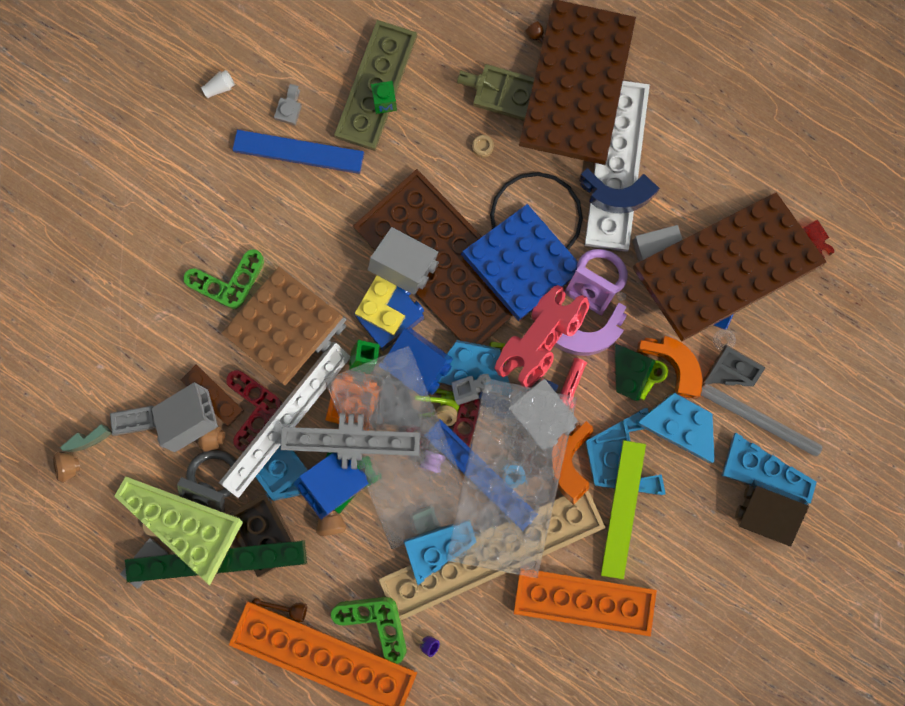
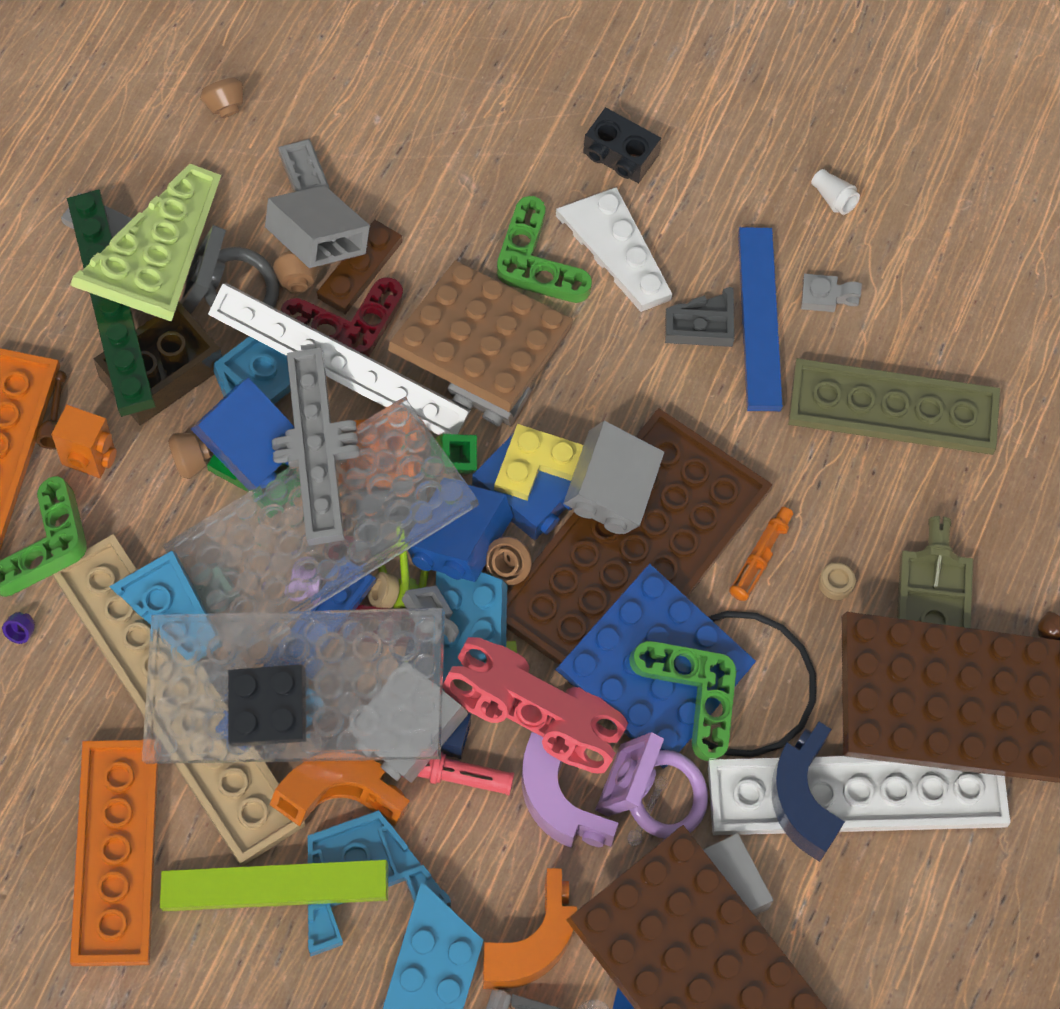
camera: 75 degrees right, 15 degrees down
(81, 442) = (263, 113): sand green slope -> none
(153, 207) = (625, 140): none -> black brick
(230, 228) = (615, 241): none -> white wing
(296, 186) = (702, 321): none -> dark grey wing
(314, 590) = (84, 441): none -> orange brick
(384, 97) = (872, 411): green brick -> none
(442, 335) = (509, 560): none -> medium nougat cone
(459, 186) = (761, 554): none -> orange piece
(523, 496) = (267, 705): none -> black plate
(538, 236) = (700, 676): none -> bright green beam
(631, 372) = (507, 868): dark green wing -> none
(654, 378) = (512, 905): lime bar -> none

